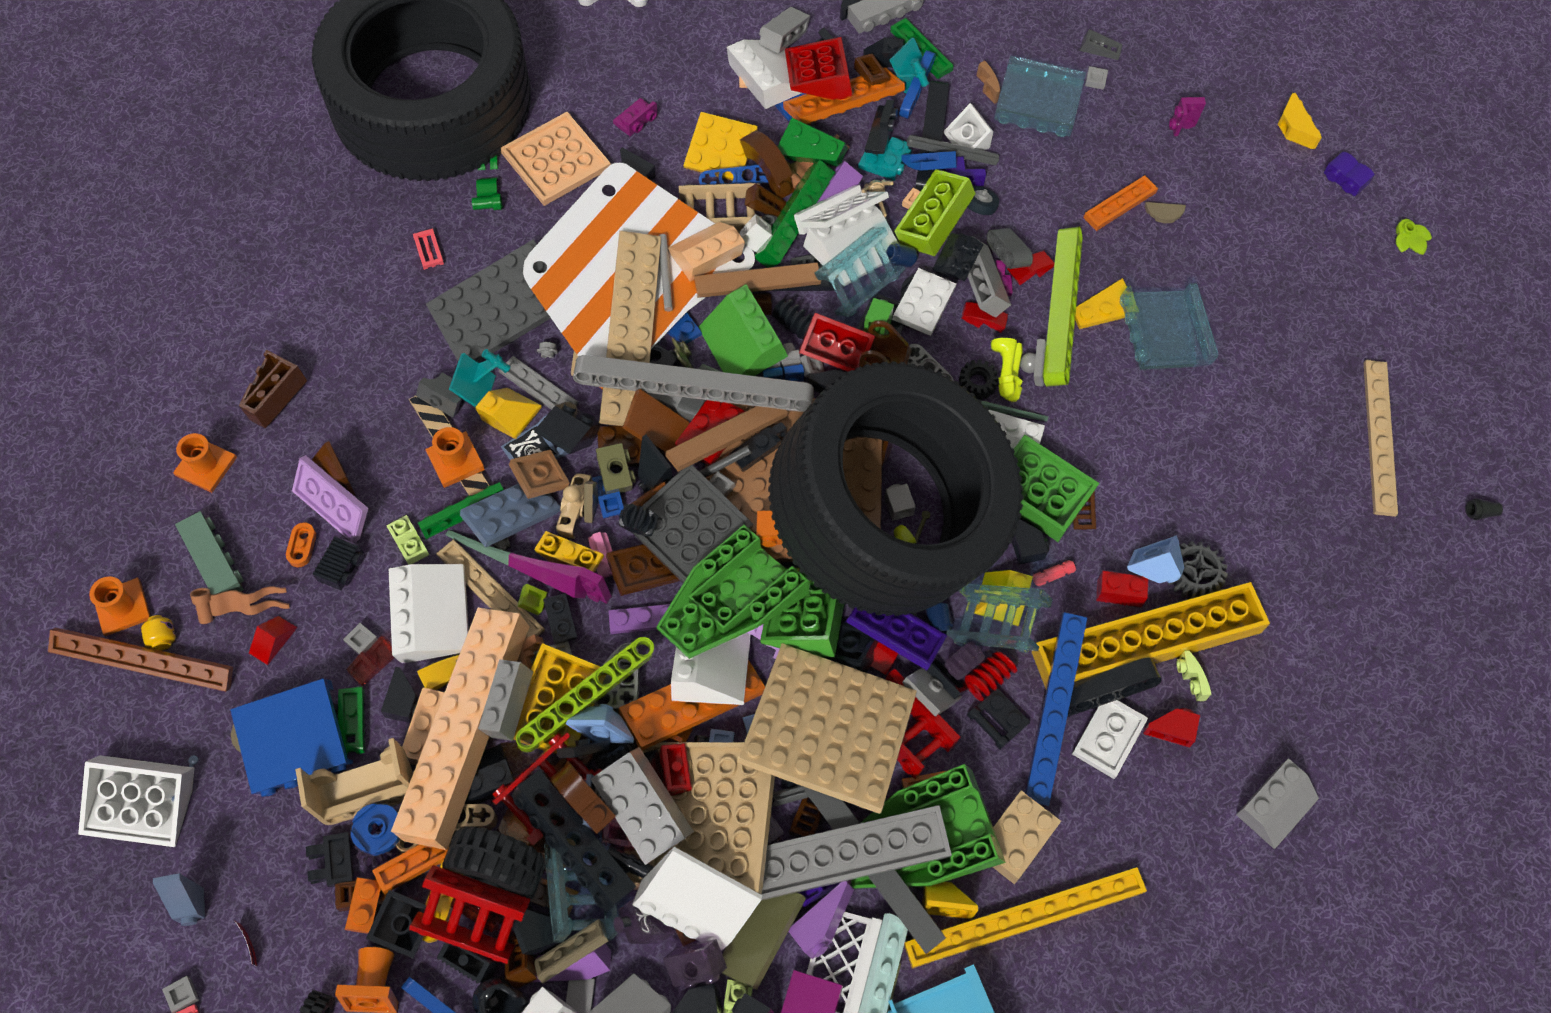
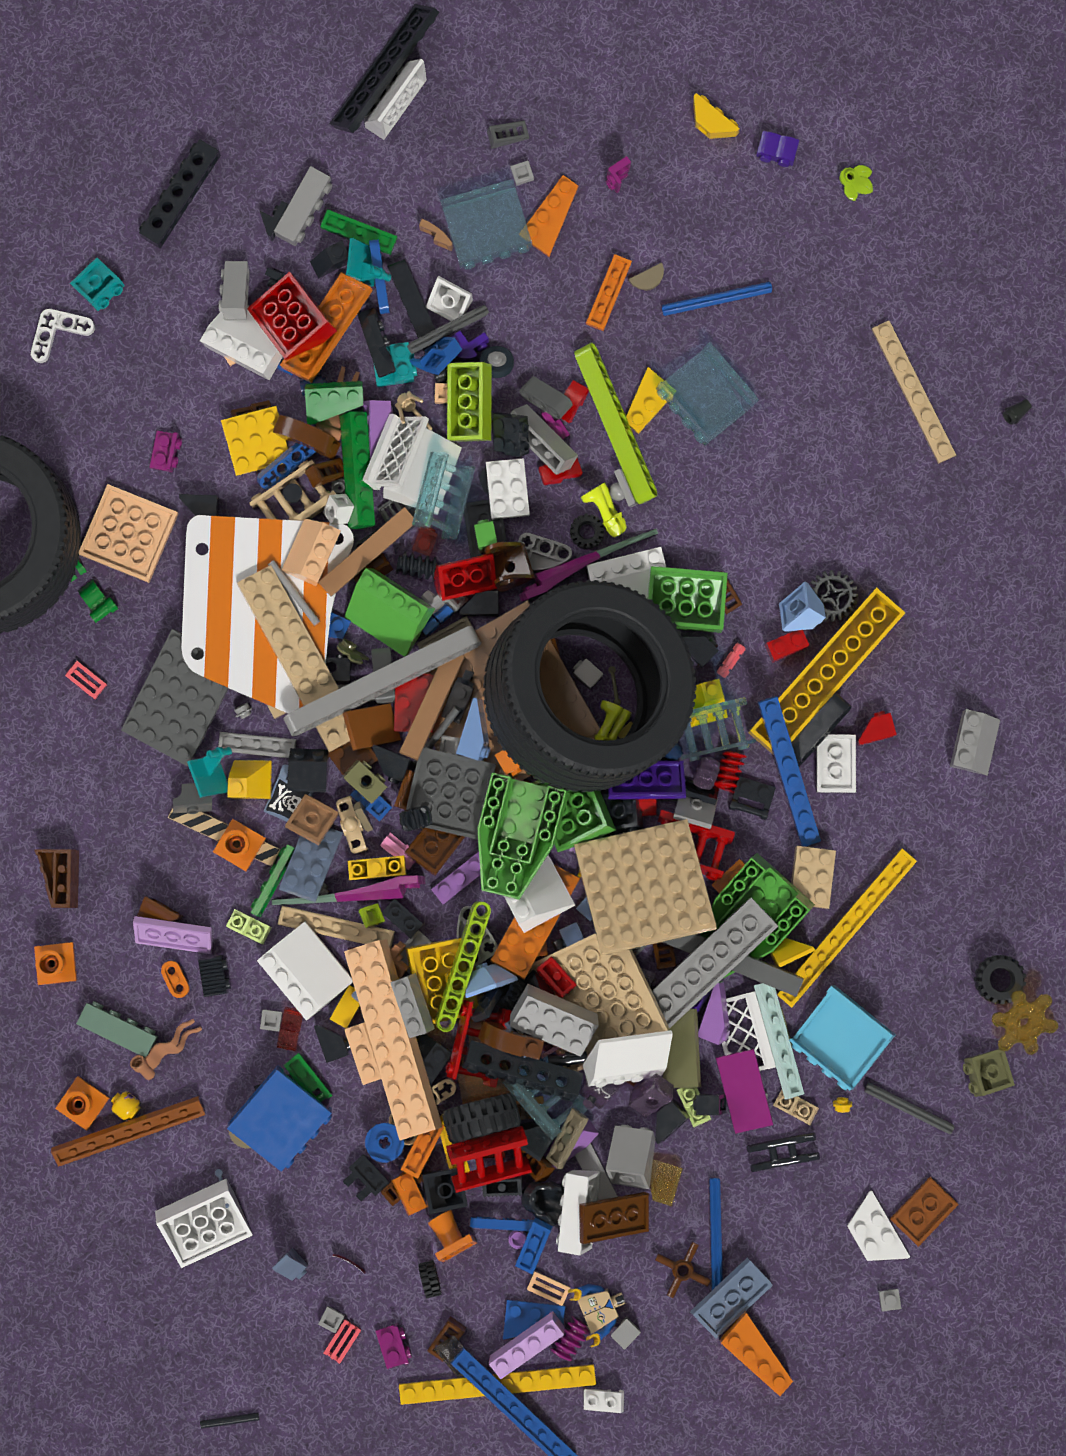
camera: 25 degrees left, 20 degrees up
(270, 638) = (207, 1058): red slope -> none
(342, 795) = (351, 1123): tan windscreen -> none
(723, 199) = (292, 493): none -> black tile
(750, 480) = (475, 737): none -> medium blue slope
(821, 303) = (425, 541): none -> clear red bracket
(870, 69) = (326, 276): reddish brown slope -> none
(902, 255) = (464, 455): dark blue brick -> none
(1098, 123) = (550, 216): none -> orange wing
(1192, 670) = (865, 678): yellowish green slope -> none
(1222, 260) = (717, 298): none -> blue axle

